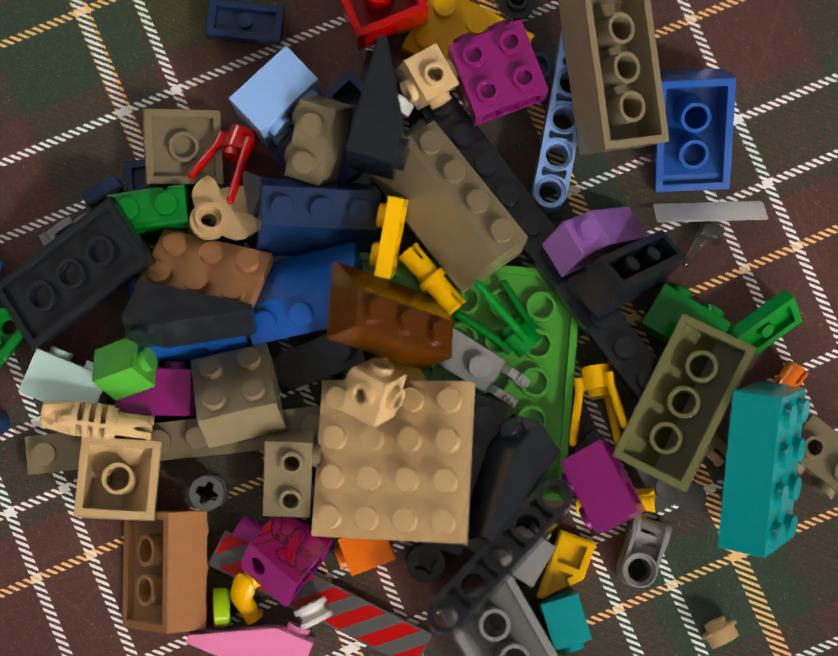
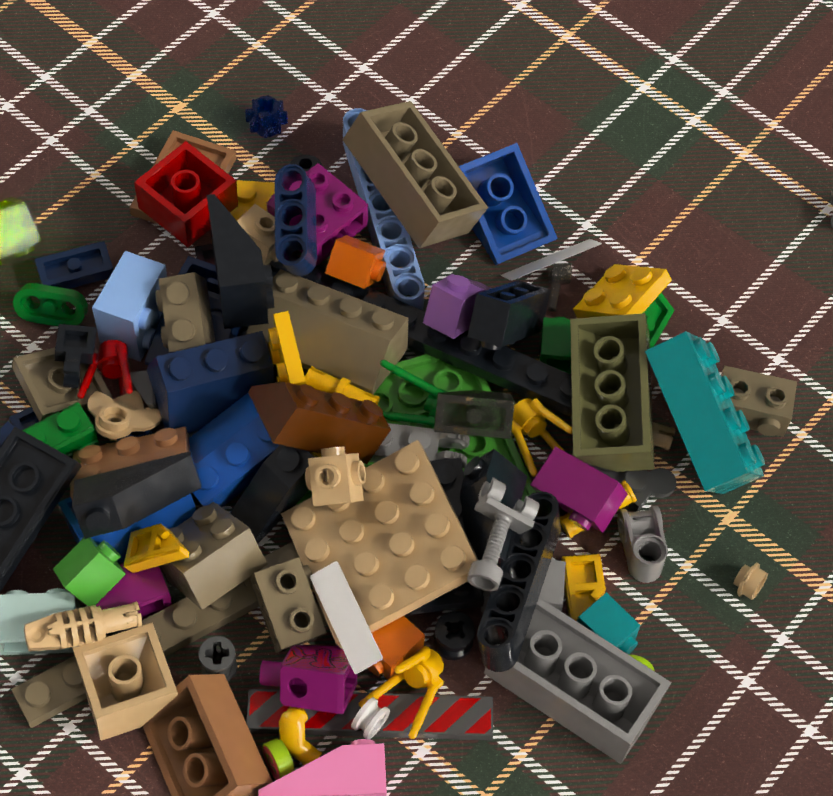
camera: 25 degrees left, 25 degrees down
(188, 375) = (153, 548): none -> yellow tile
(204, 122) = (74, 346): none -> black plate
(205, 57) = (52, 306): none -> green plate
(328, 521) = (346, 617): none -> white sticker
(377, 584) = (419, 671): none -> yellow plant
(462, 66) = (287, 206): none -> dark blue beam
(511, 143) = (356, 262): none -> orange brick
(530, 506) = (485, 573): none -> light grey bar
(544, 368) = (474, 413): none -> clear smoke slope
(757, 289) = (623, 291): none -> yellow plate

